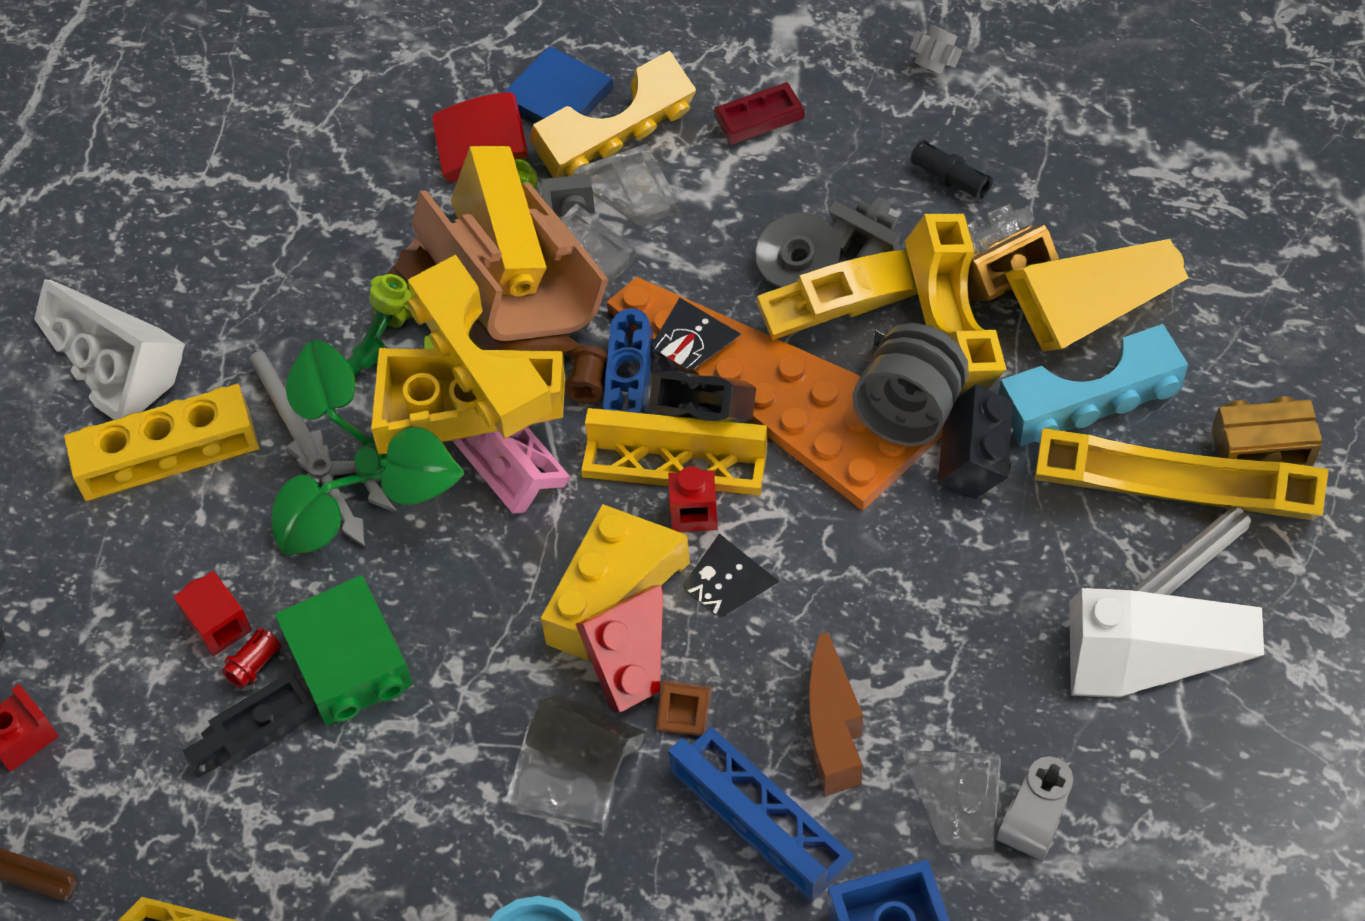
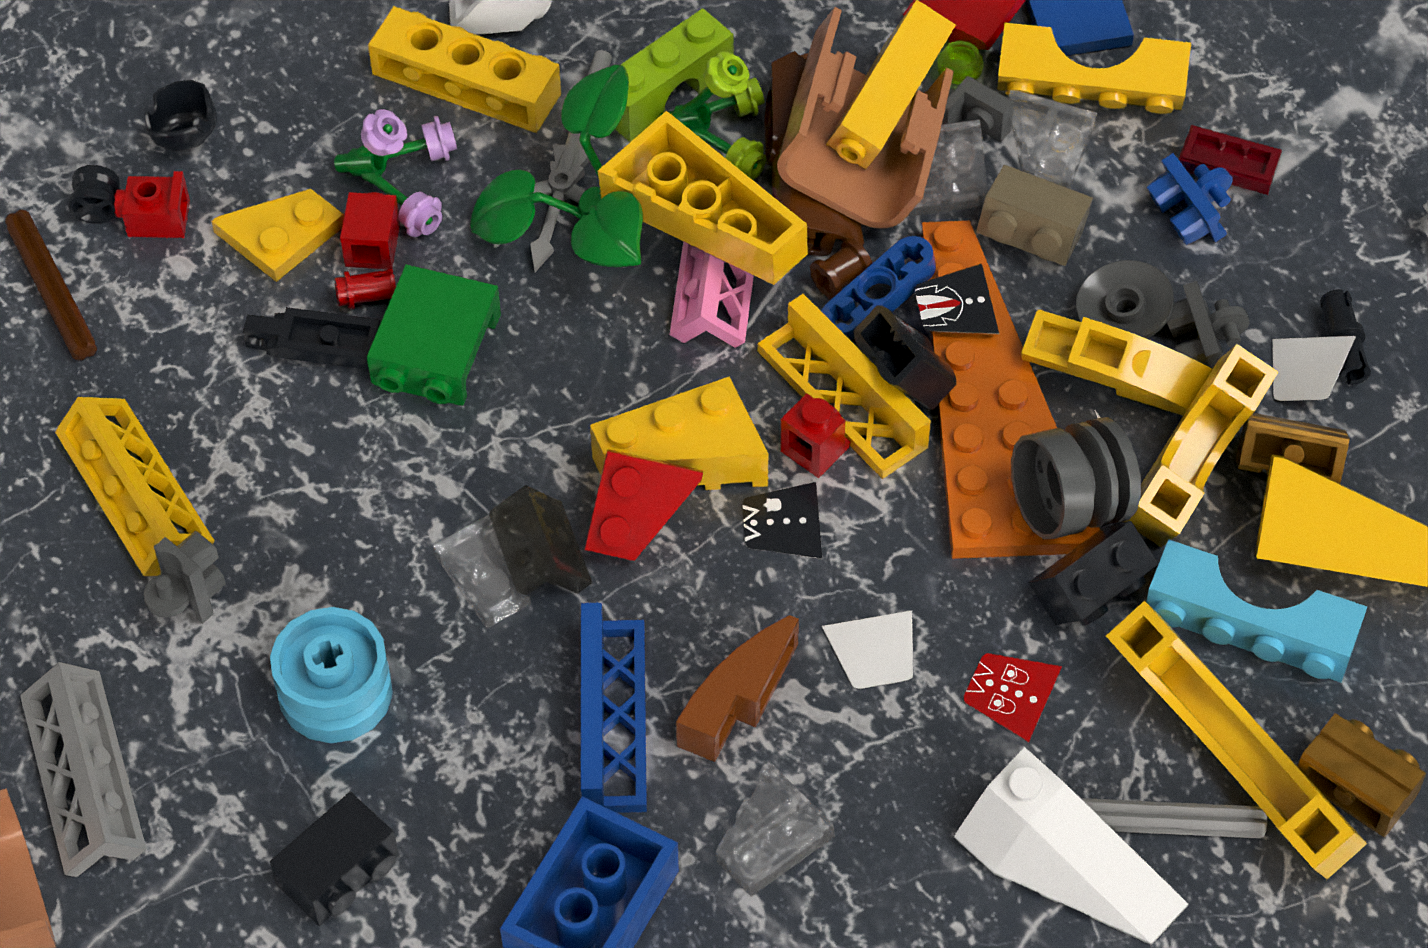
camera: 40 degrees right, 0 degrees up
(135, 671) = (280, 231): none -> yellow wing
(164, 531) = (382, 140): none -> lavender plant
(324, 310) = (666, 63): none -> lime arch
(506, 387) = (746, 117): yellow arch -> none
(680, 239) = (1034, 215): none -> dark tan brick
(684, 707) = (642, 588): dark orange slope -> none
(766, 147) = (1200, 215): none -> blue hips
(880, 614) = (874, 649): none -> white sticker
(951, 195) = (1308, 366): none -> white sticker
(997, 566) = (1011, 691): none -> red sticker
(1001, 224) = (1332, 413): clear wing -> none
(1035, 812) = (816, 895): light grey piece -> none

